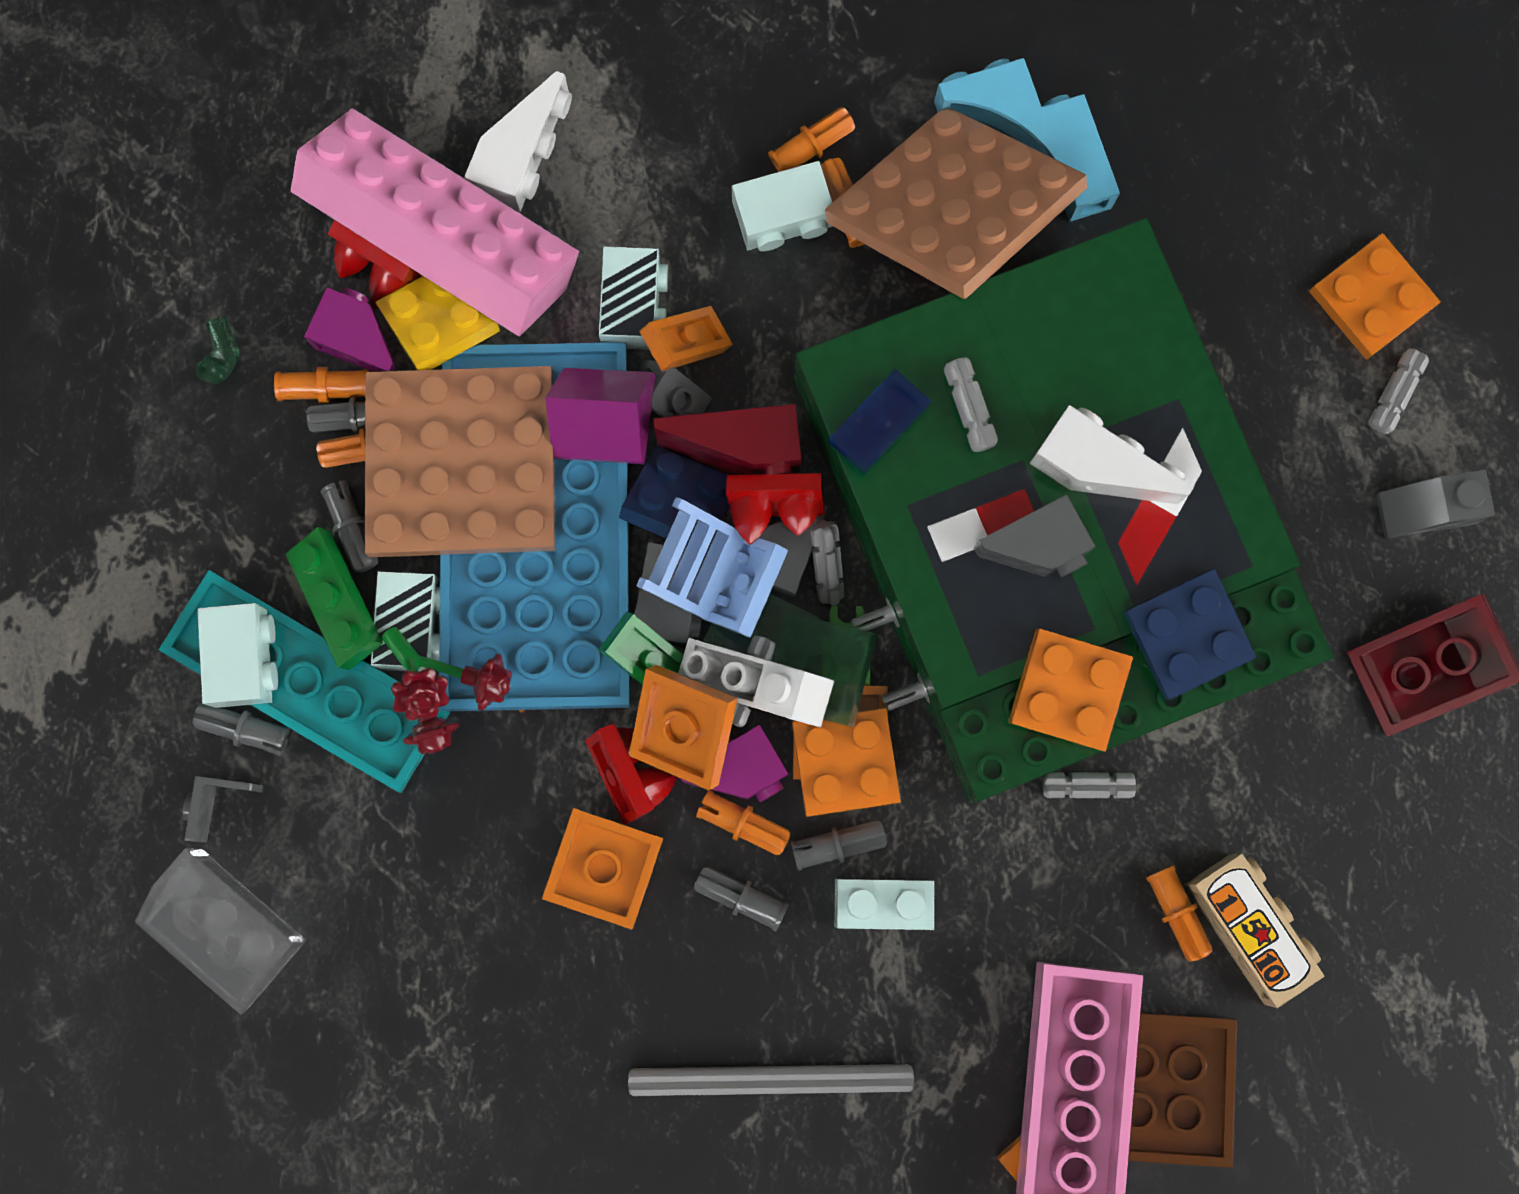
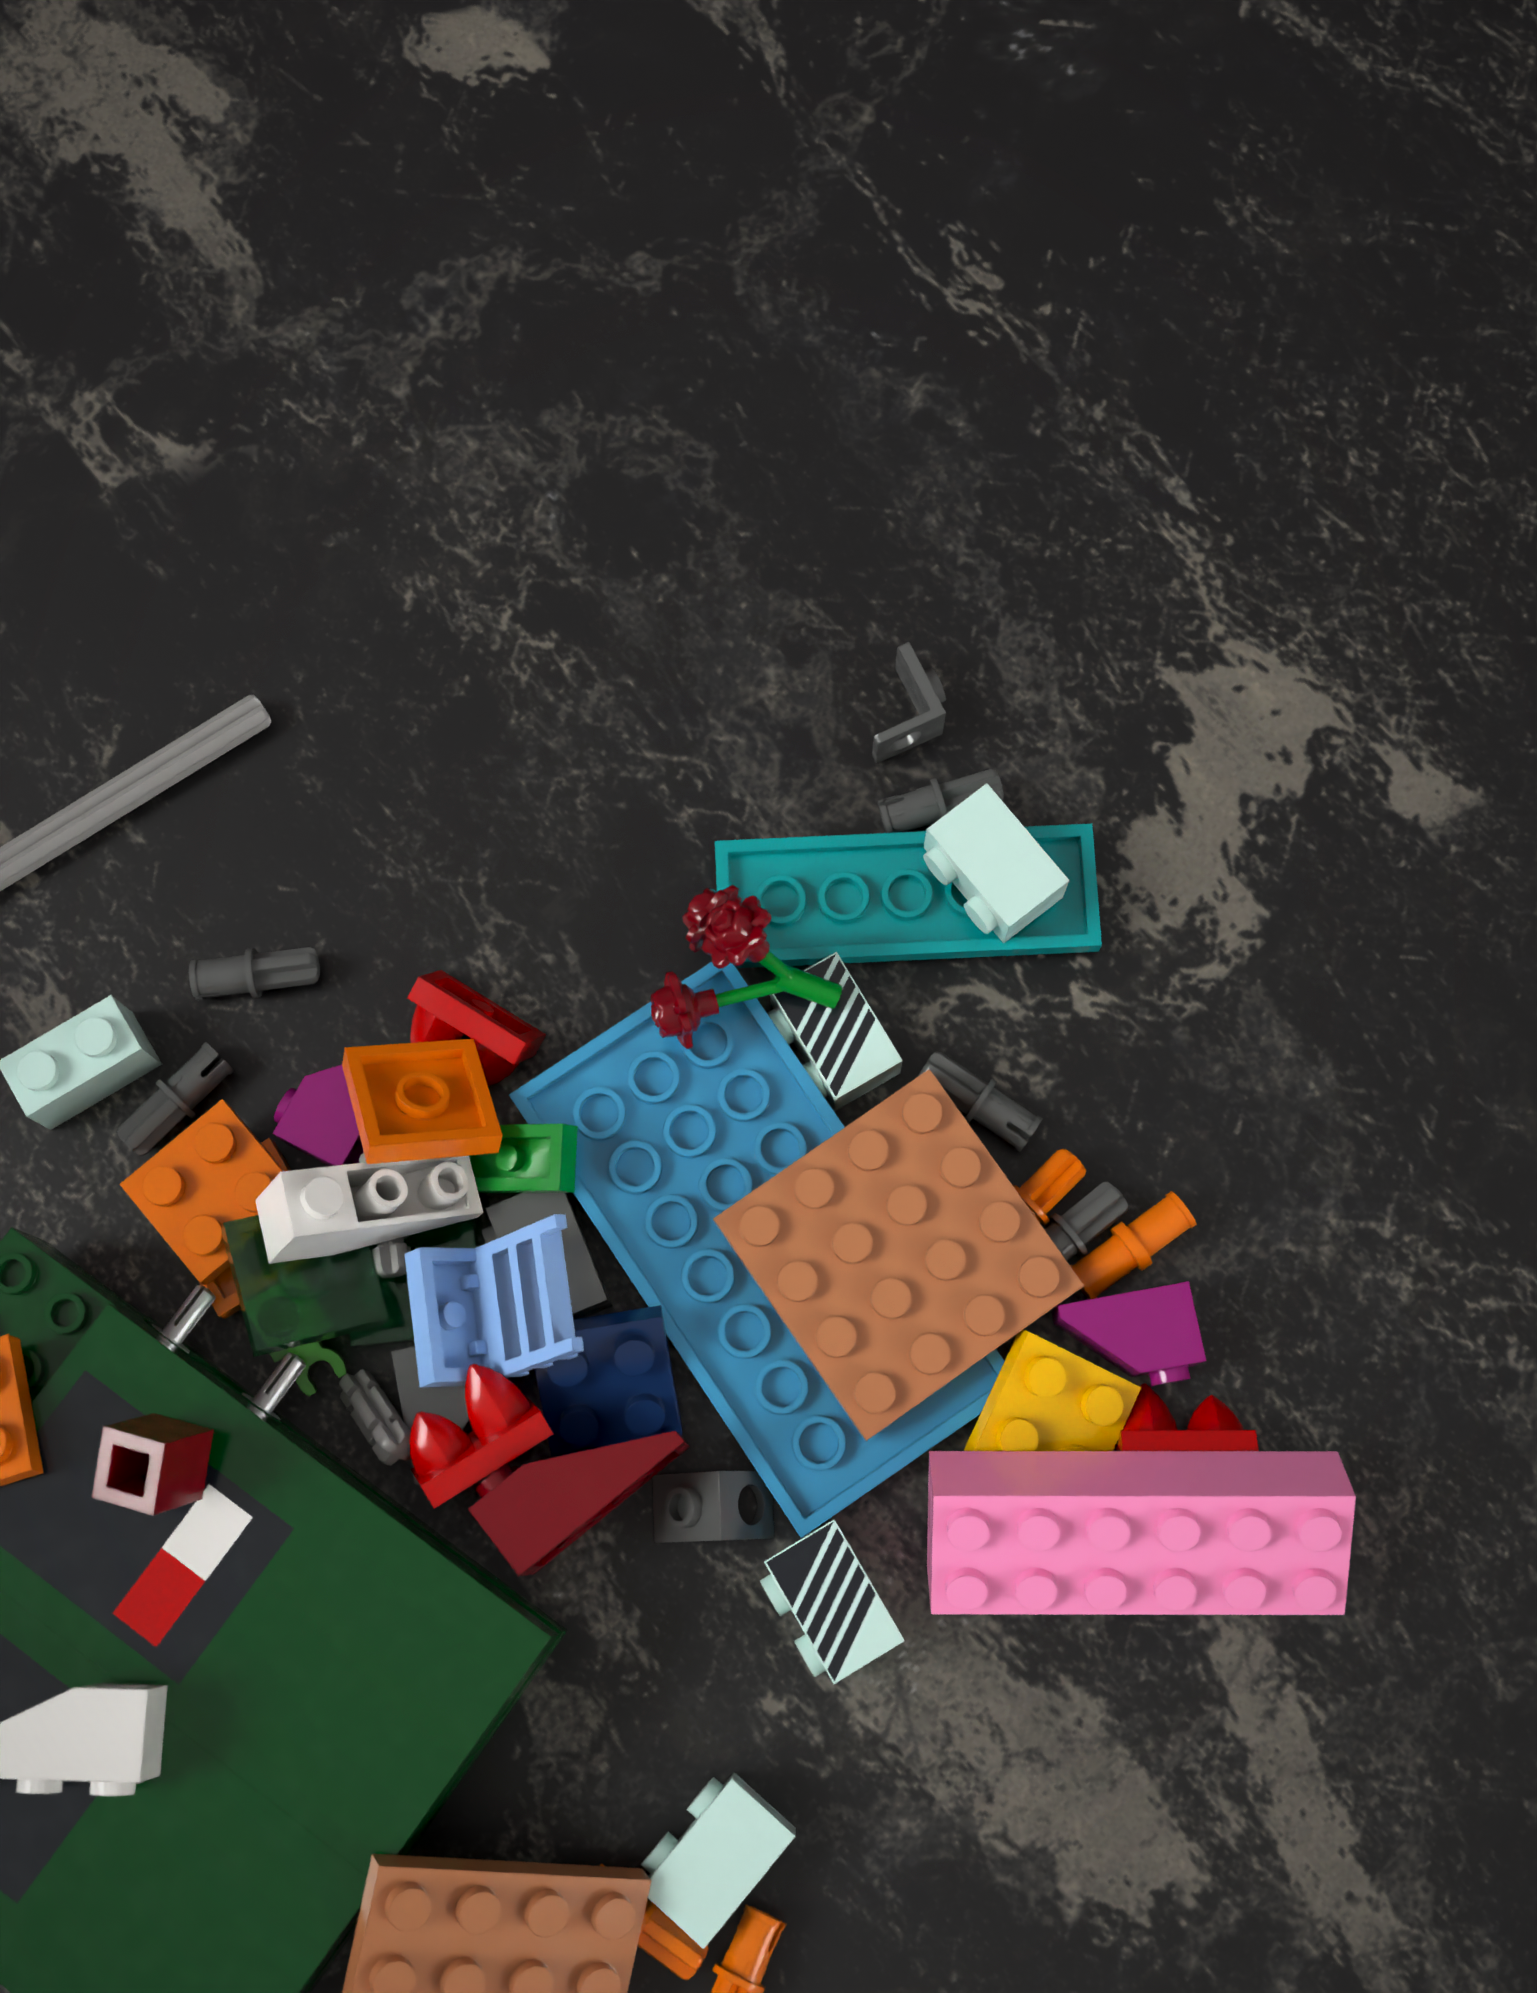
camera: 155 degrees right, 5 degrees down
(218, 928) = (811, 589): clear slope -> none
(224, 355) = (1275, 1205): clear green arm -> none
(334, 598) = (935, 1002): green plate -> none
(514, 147) = (1112, 1704): white slope -> none
(600, 415) = (765, 1420): magenta slope -> none
(602, 868) = (431, 906): orange plate -> none
(686, 338) = (725, 1589): orange plate -> none
(743, 823) = (293, 1054): orange axle -> none
(879, 421) = (383, 1609): clear blue plate -> none
(964, 582) = (152, 1463): none -> dark red brick
(970, 404) = (282, 1711): light grey axle -> none
(1041, 541) = (88, 1584): dark grey slope -> none

